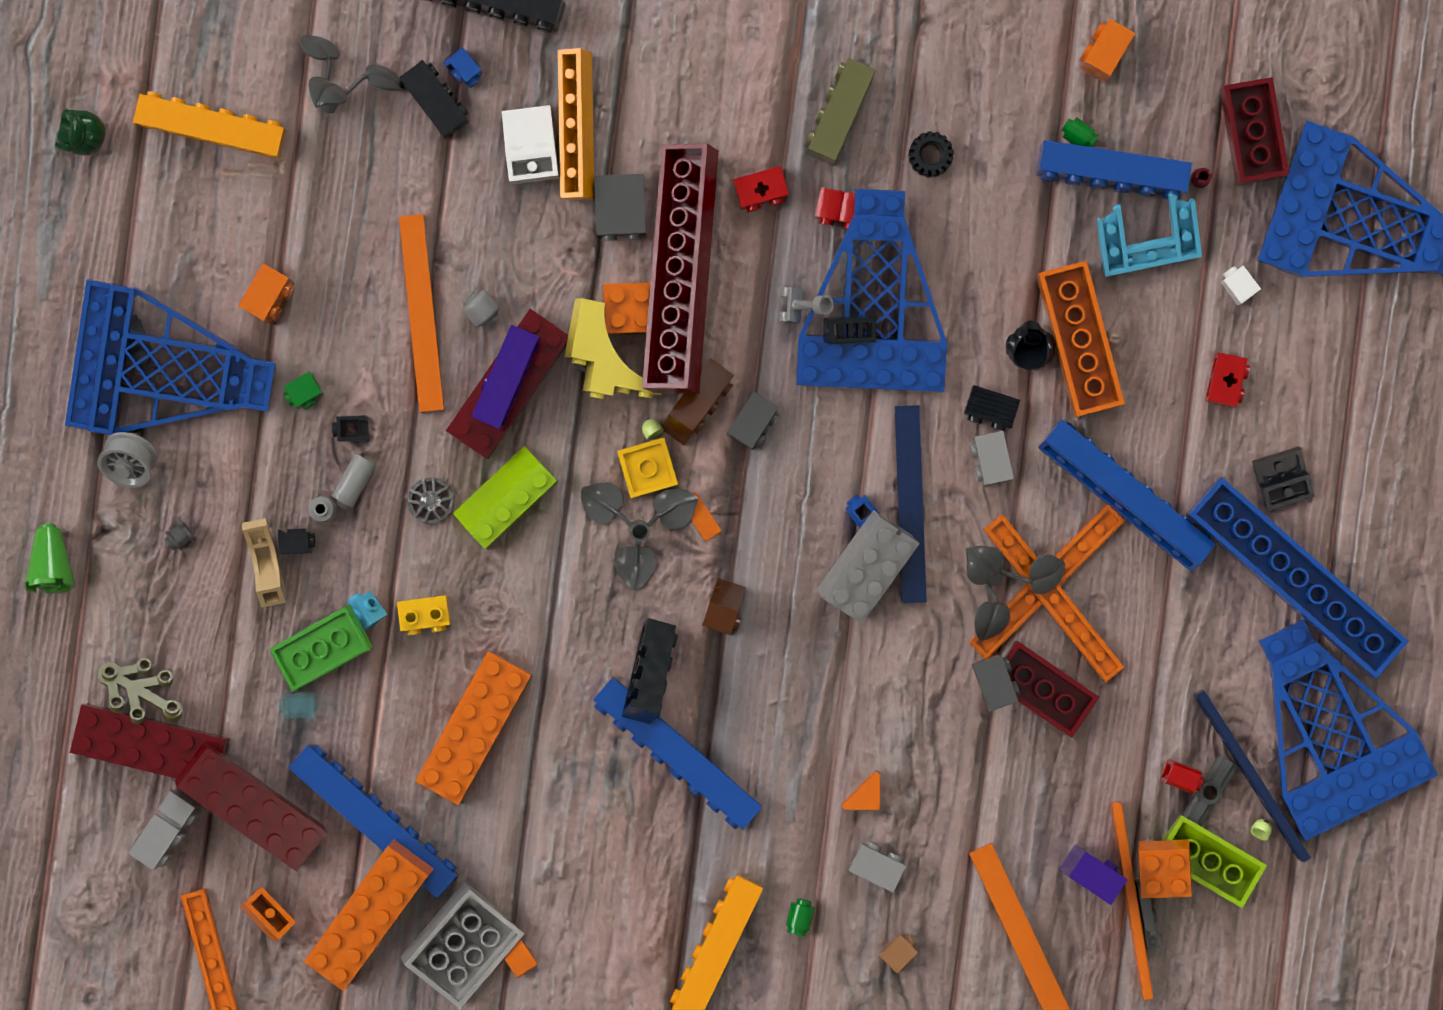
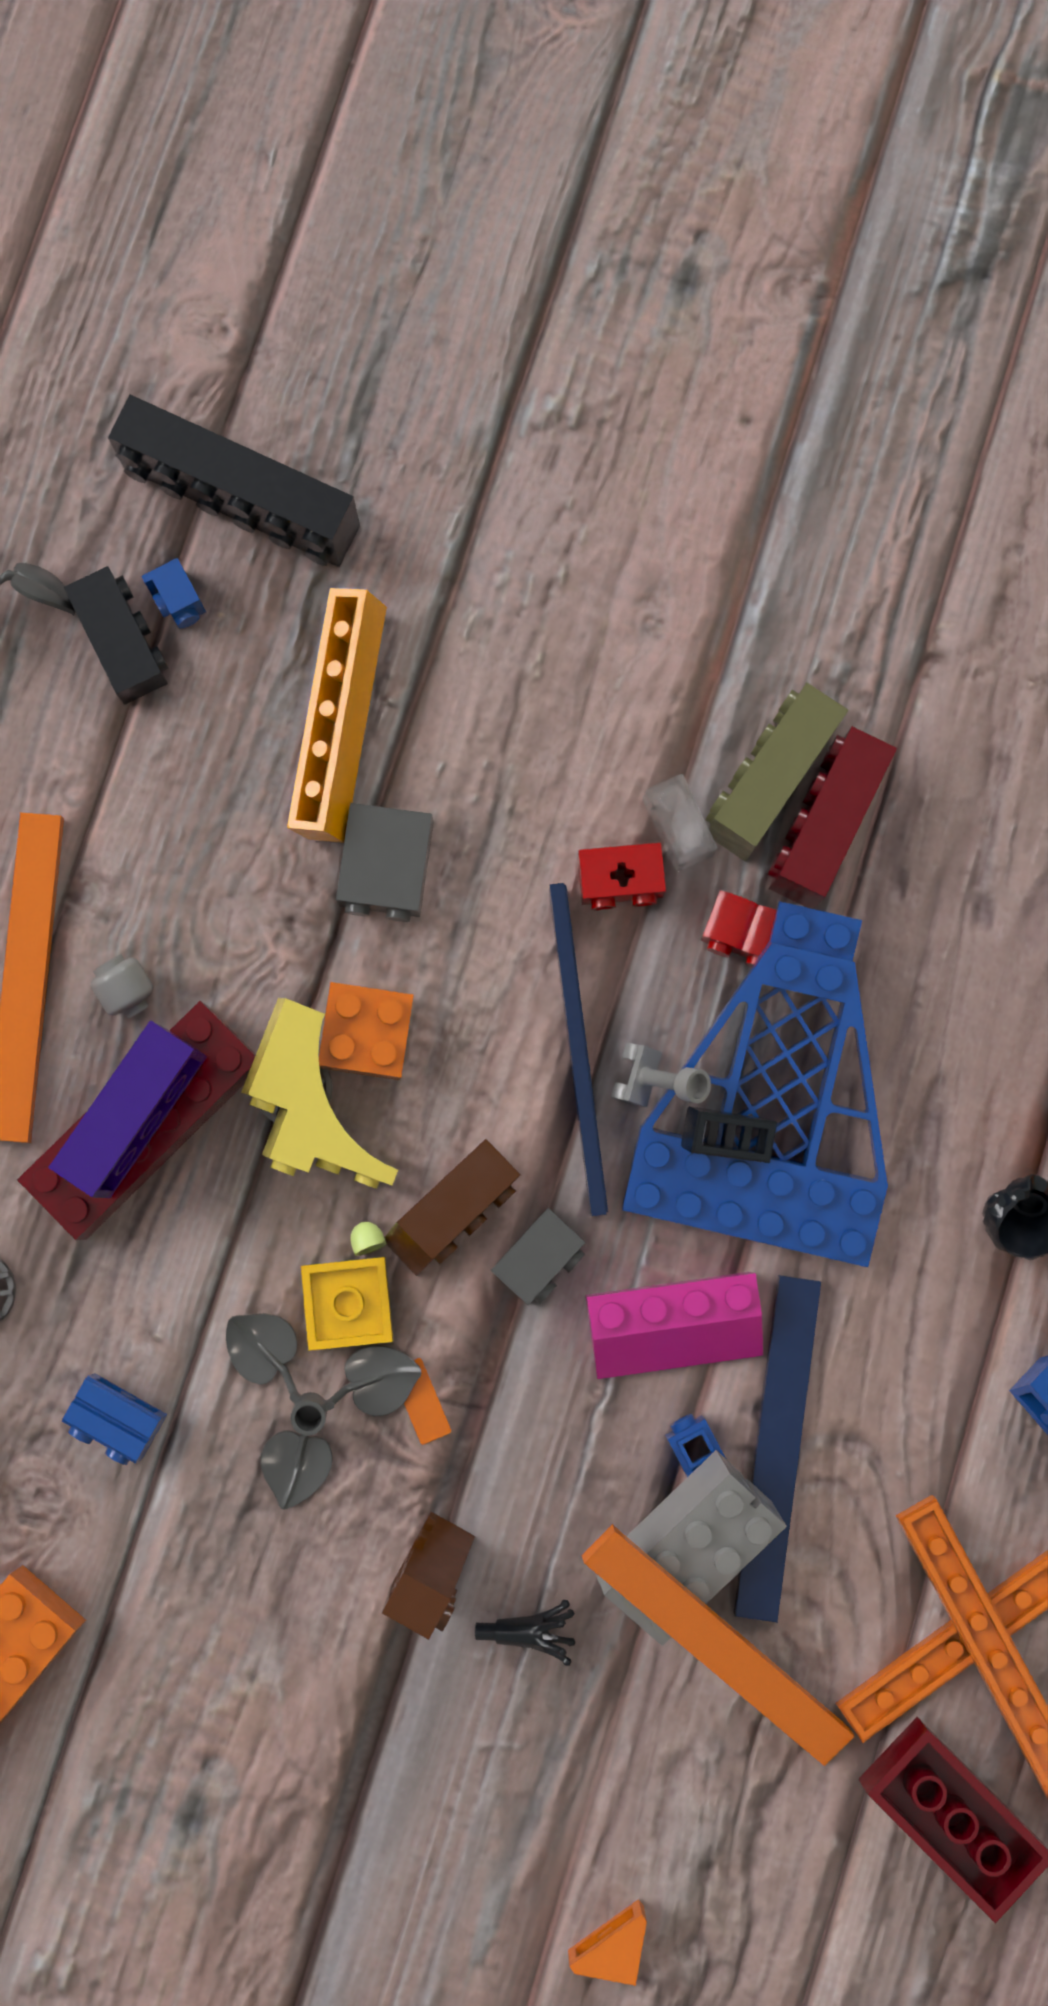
camera: 10 degrees right, 5 degrees down
(505, 497) = (97, 1311): lime slope -> none
(527, 557) = (113, 1419): none -> blue brick
(530, 145) = (256, 737): white slope -> none
(650, 671) = (281, 1664): black wedge -> none
(680, 268) = (462, 983): dark red brick -> none
(682, 757) = (304, 1813): blue brick -> none
(754, 296) = (578, 1050): none -> dark blue tile
(787, 632) = (531, 1632): none -> black piece
(789, 151) = (679, 822): none -> clear brick
(839, 445) = (675, 1324): none -> dark pink slope
(879, 130) = (833, 816): none -> dark red brick
(893, 616) = (717, 1644): none -> orange tile
(941, 143) = (927, 853): black tyre -> none
(985, 567) = (894, 1596): dark grey plant -> none
(991, 407) = (942, 1308): black brick -> none
(991, 458) = (929, 1395): light grey brick -> none
(995, 682) = (880, 1804): dark grey brick -> none

